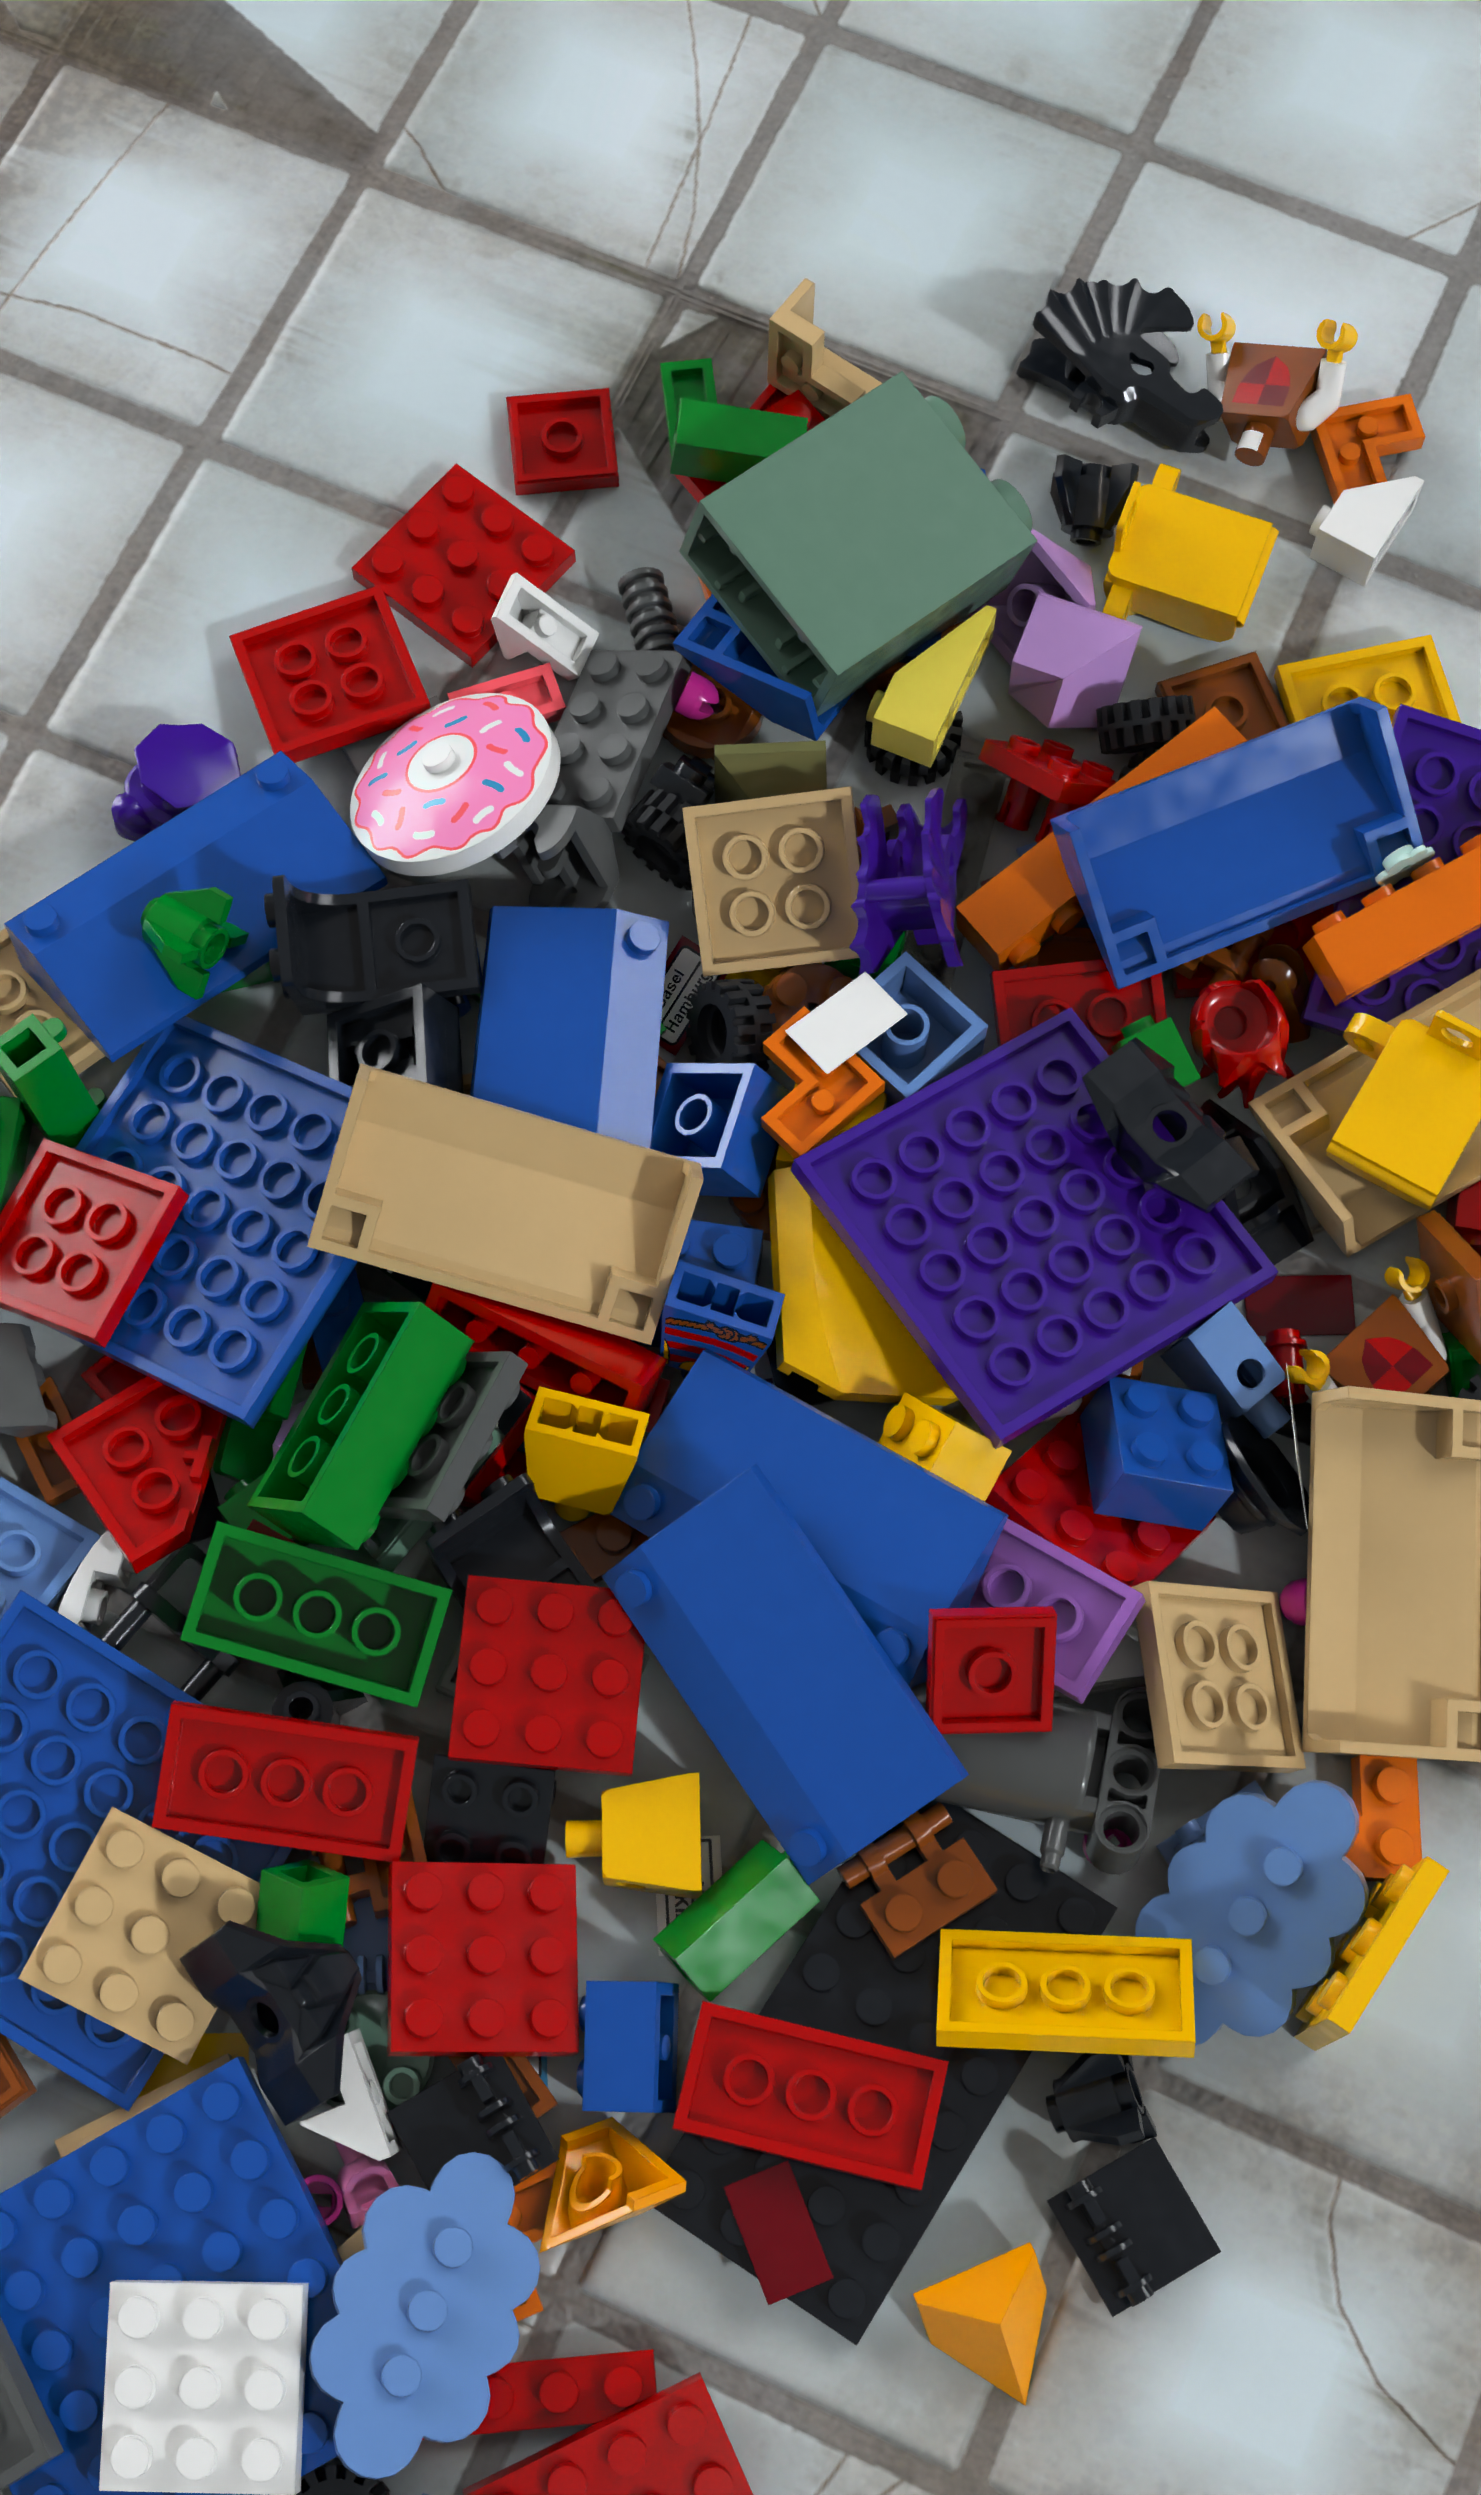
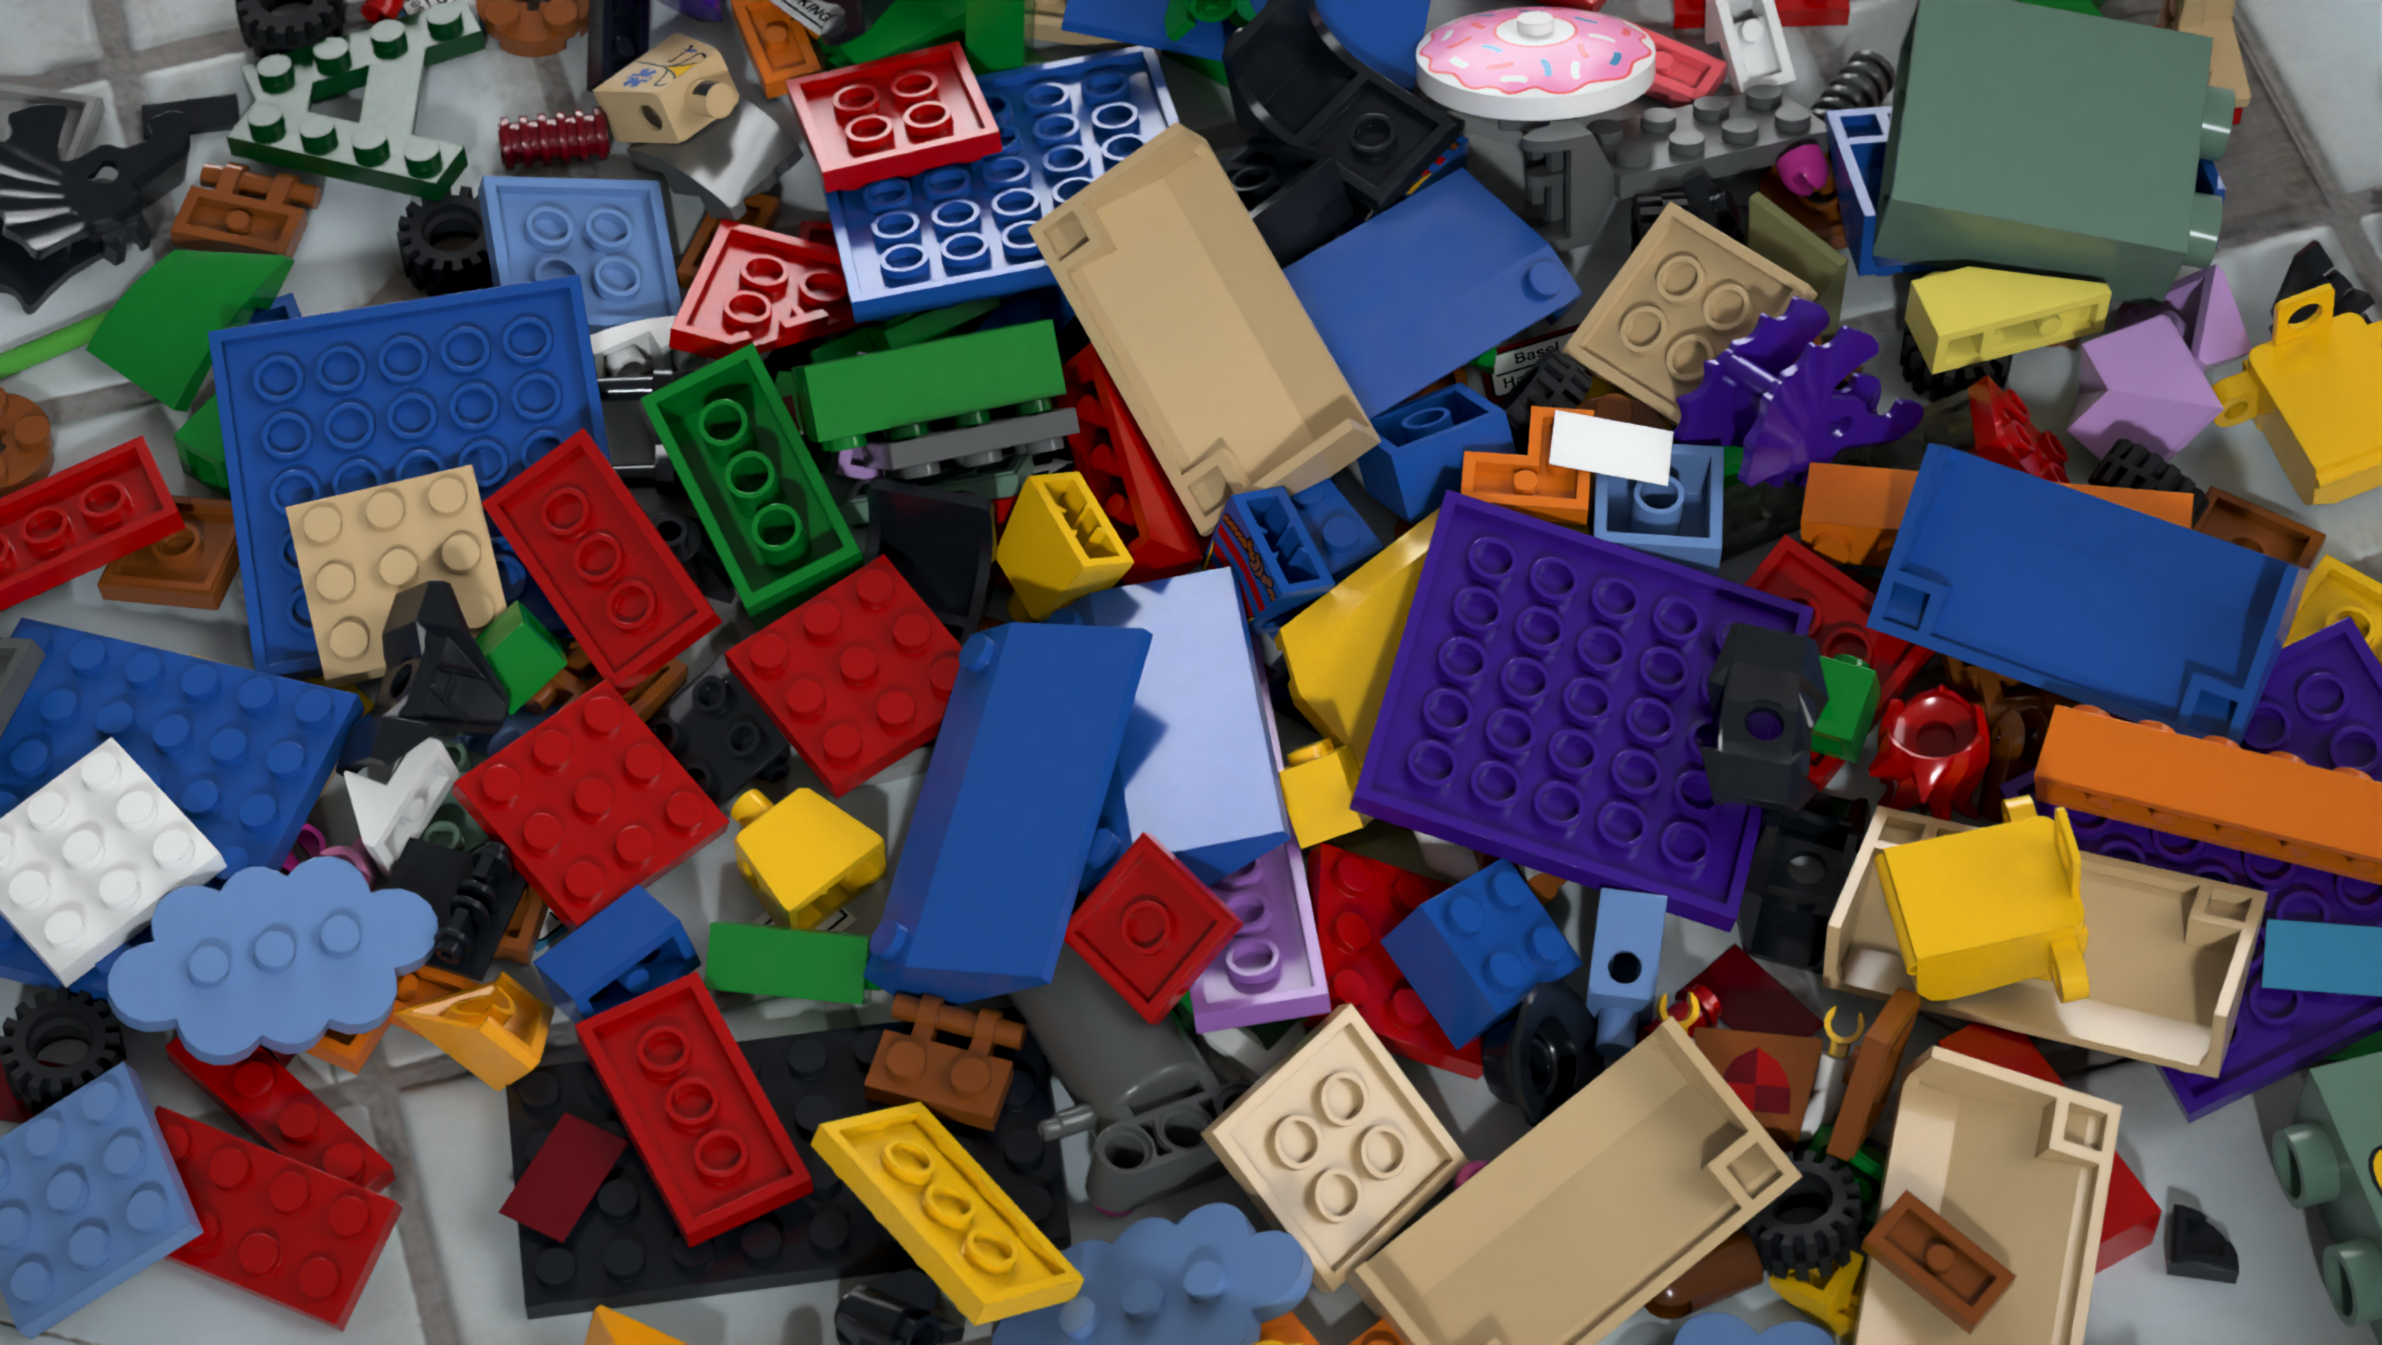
camera: 50 degrees right, 15 degrees down
(1296, 1445) = (1594, 1042): white sticker -> none
(1403, 862) = (2199, 720): light aqua plant -> none

